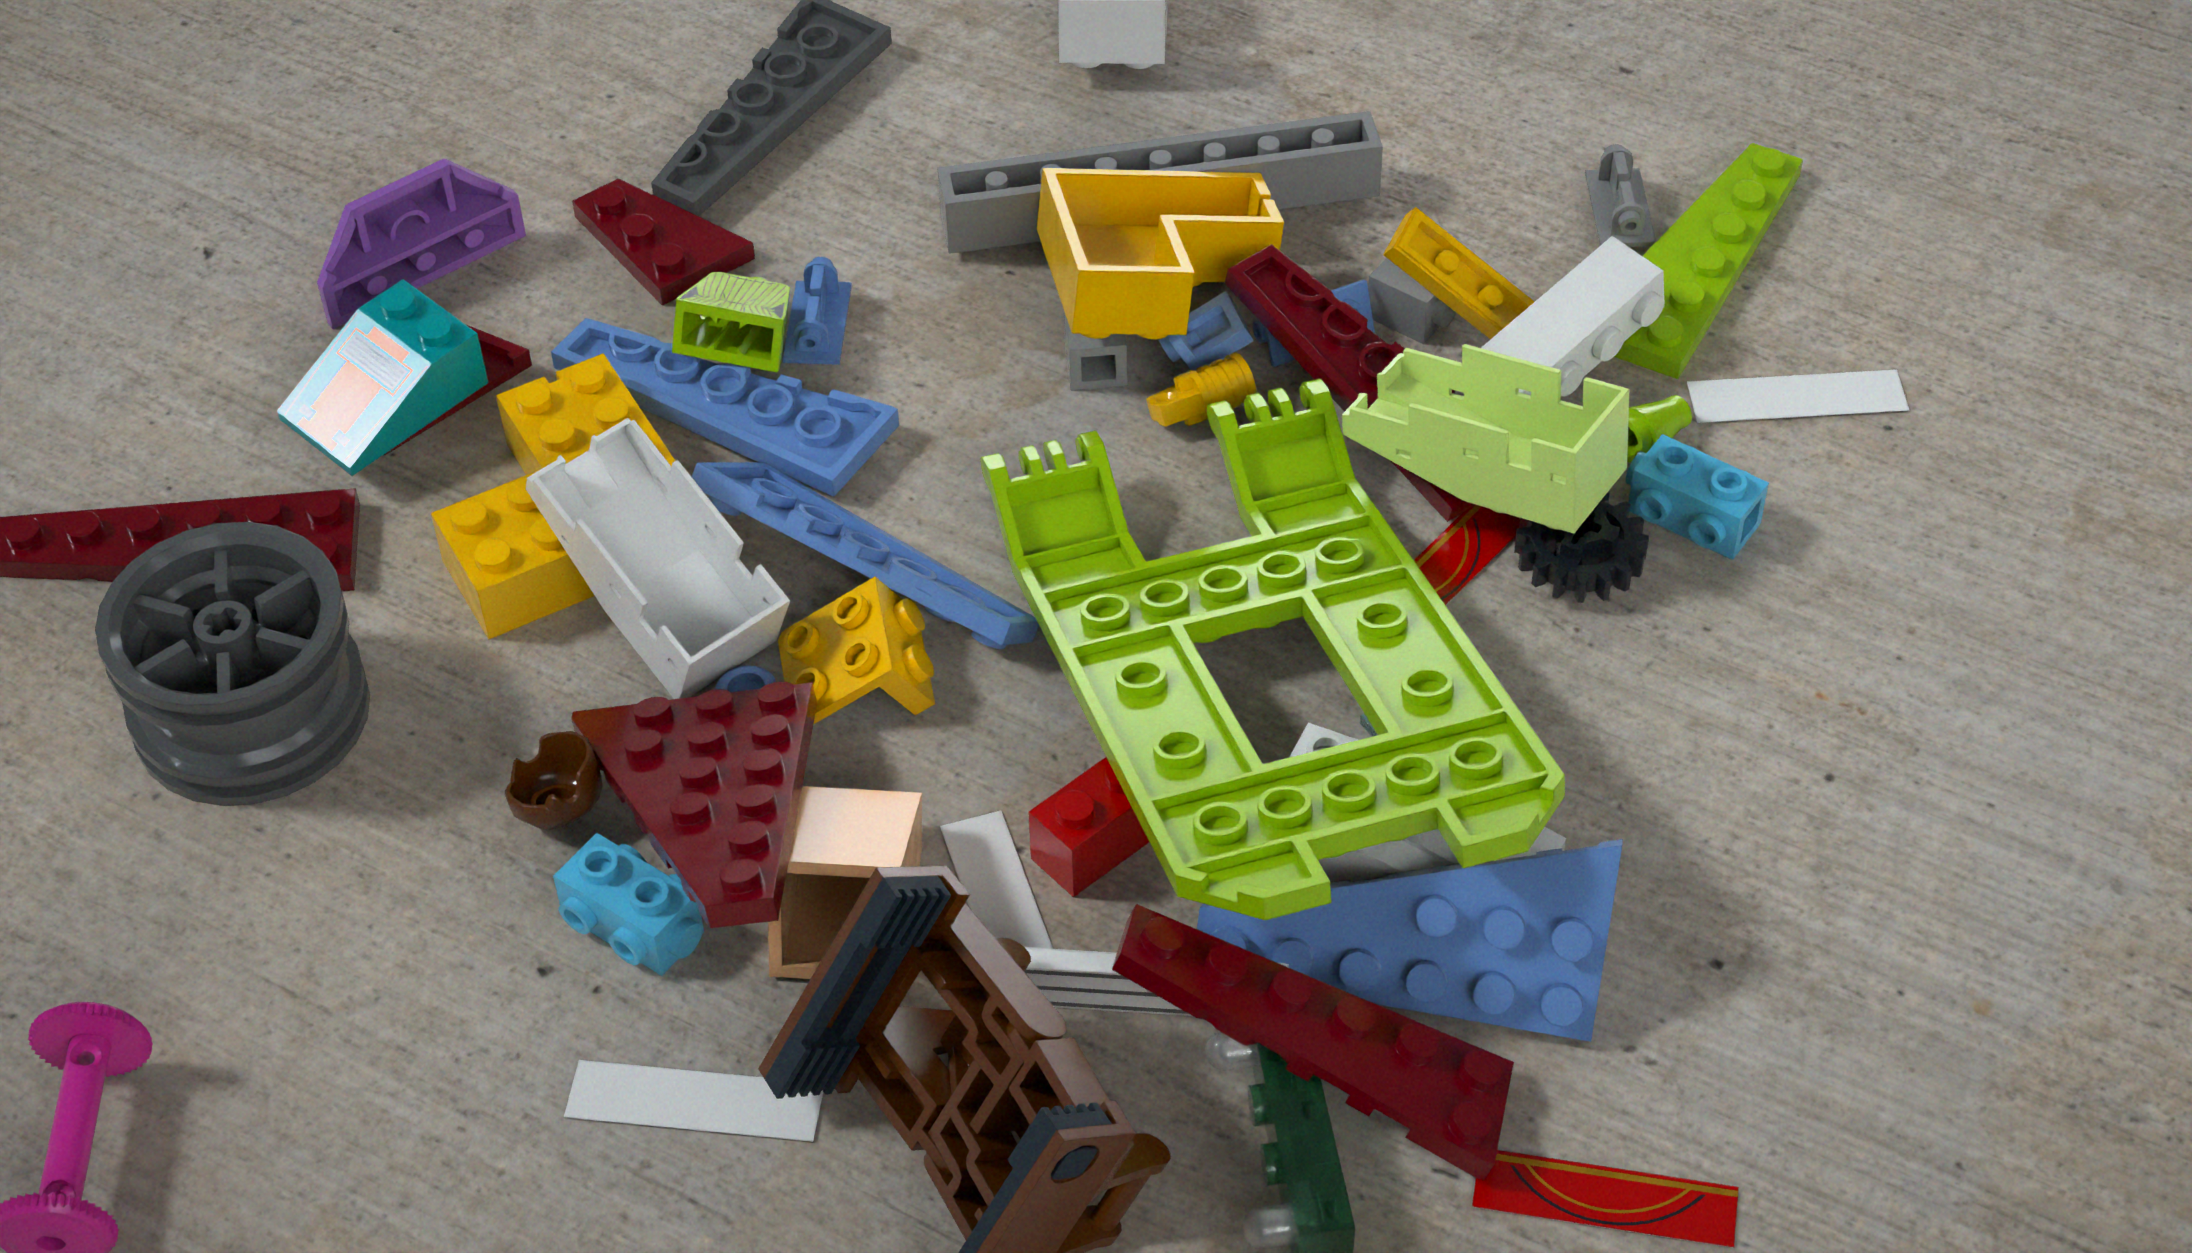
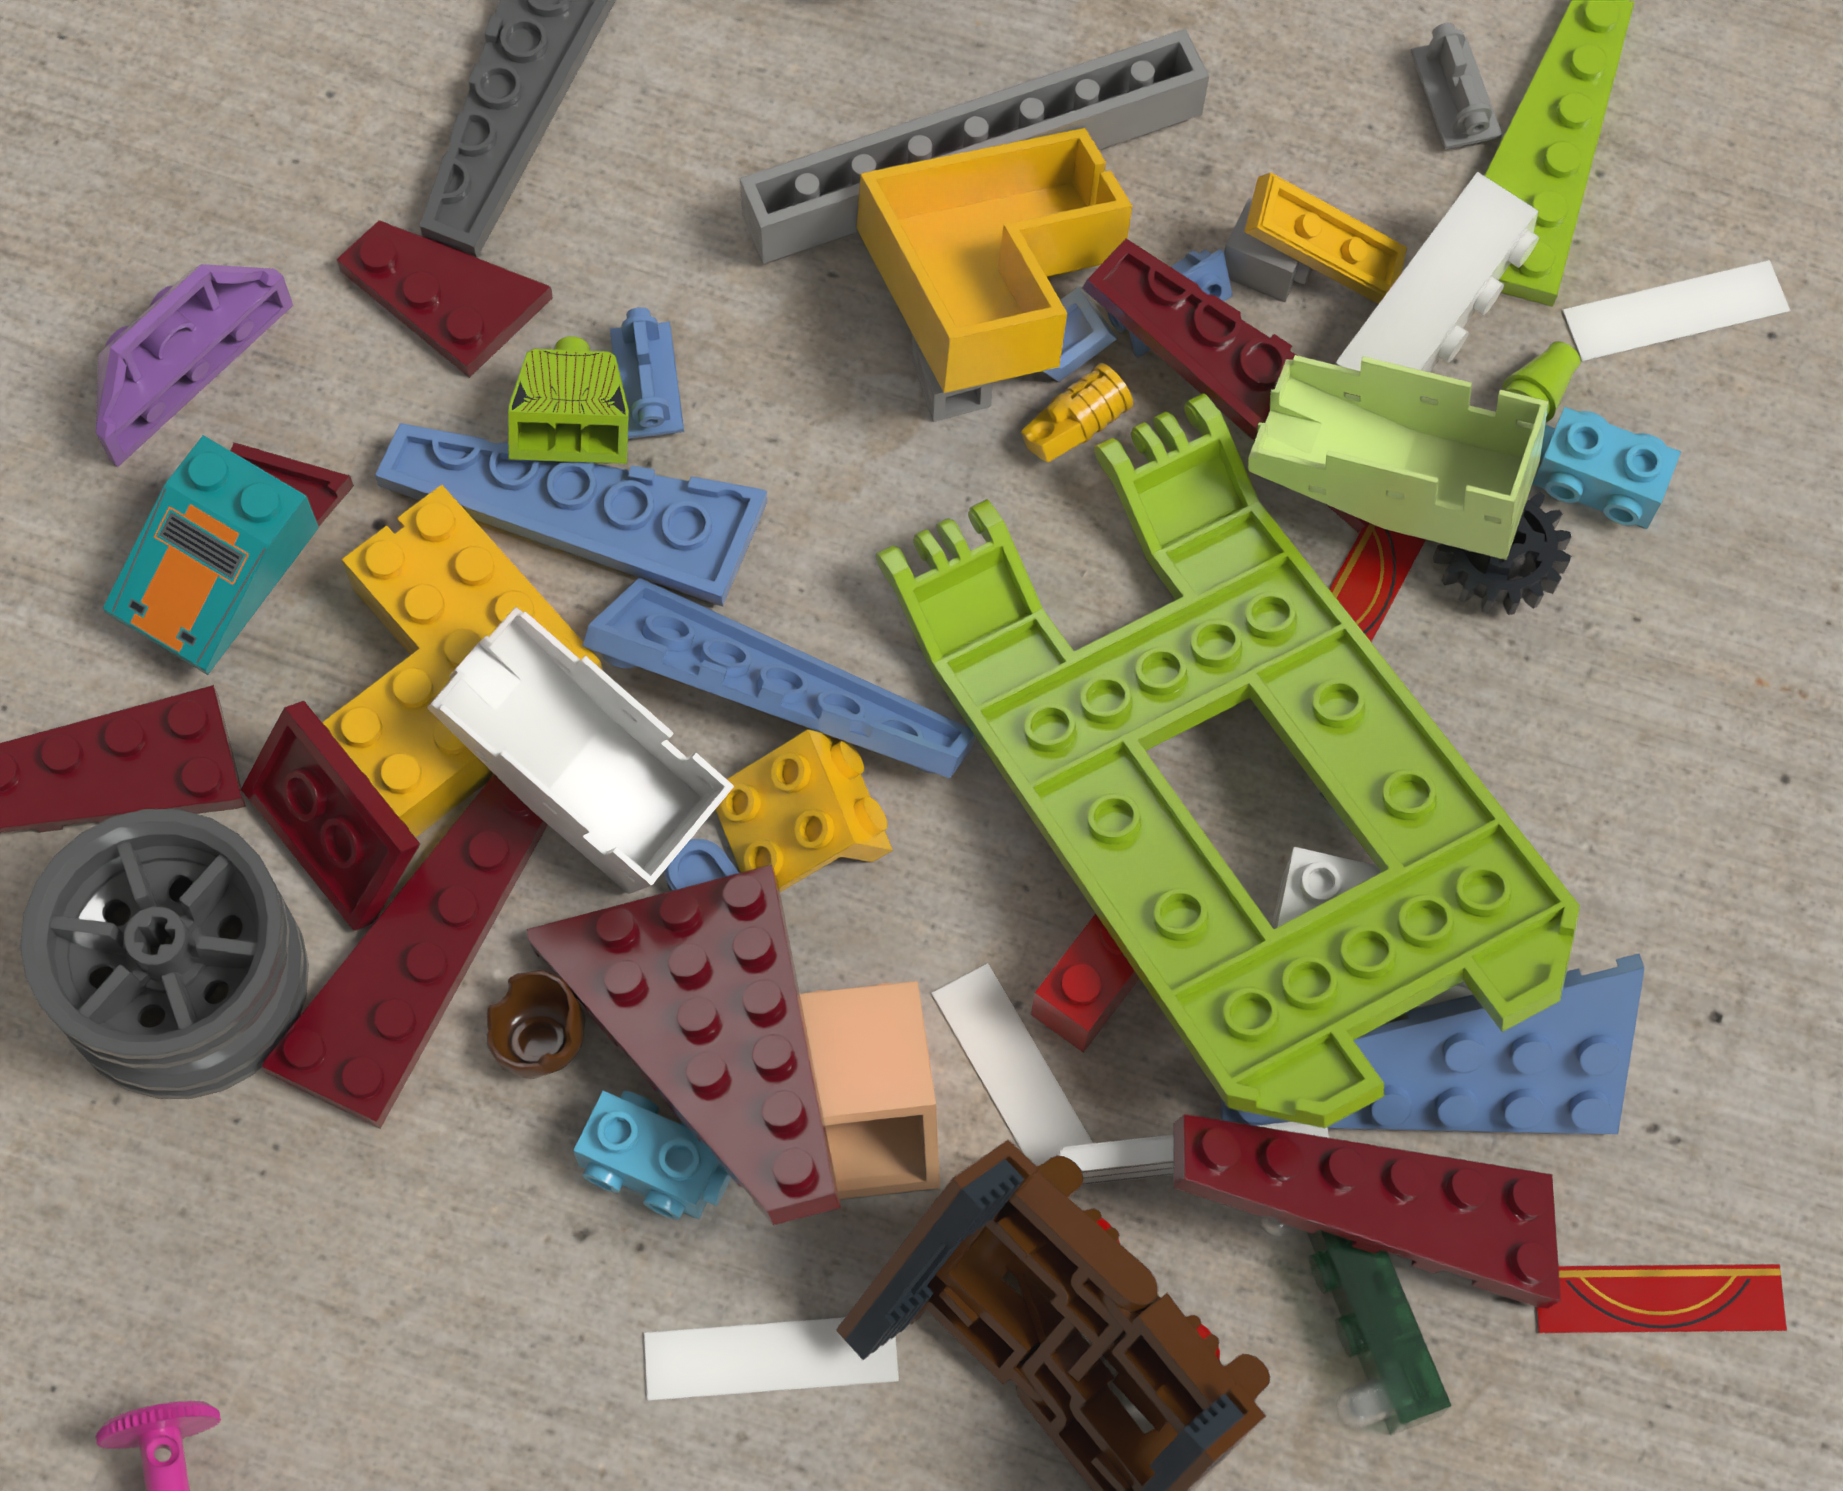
camera: 15 degrees left, 20 degrees up
(420, 588) = (329, 815): none -> dark red plate
(436, 744) = (395, 985): none -> dark red wing

